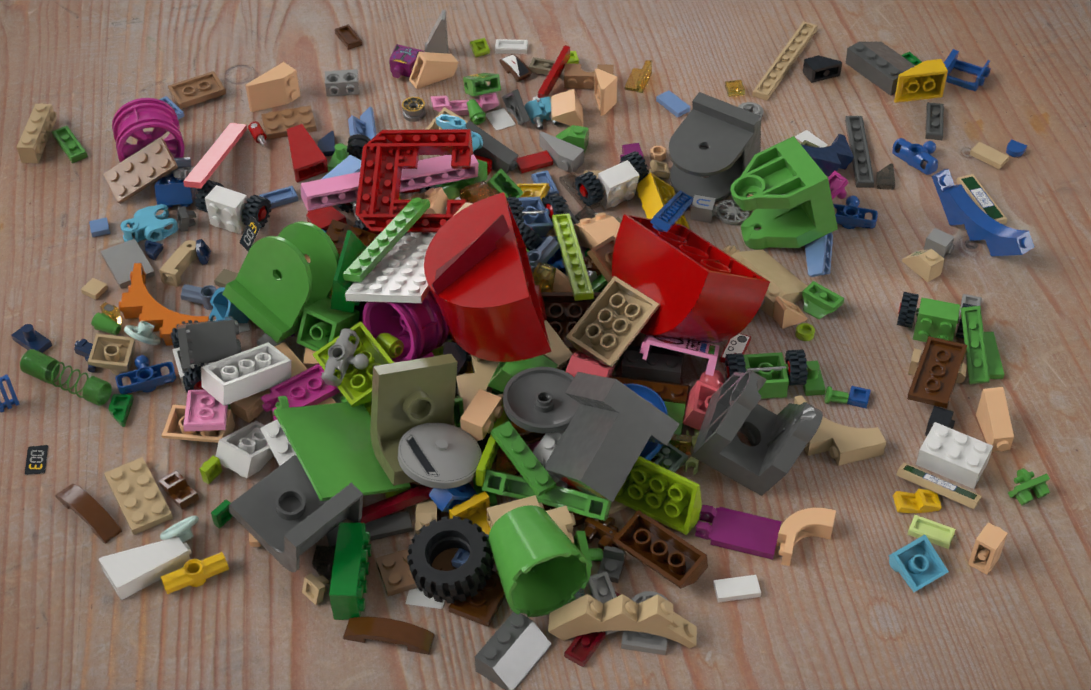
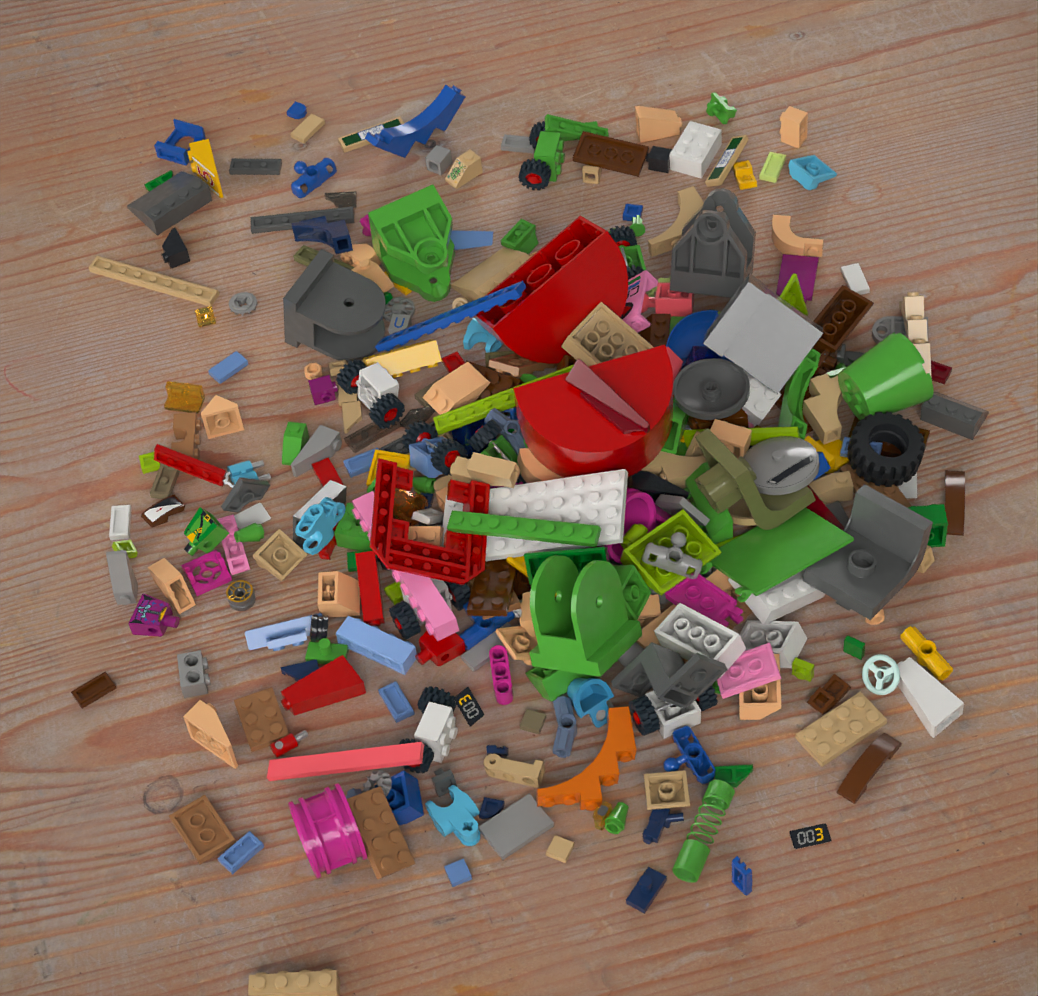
camera: 90 degrees left, 5 degrees up
(69, 144) = (307, 950): bright green tile -> none
(143, 333) = (631, 769): light aqua piece -> none
(441, 82) = (201, 588): none -> dark pink piece
(523, 458) = (771, 406): bright green plate -> none
(567, 108) = (247, 448): light nougat slope -> none
(806, 135) = (283, 257): white sticker -> none

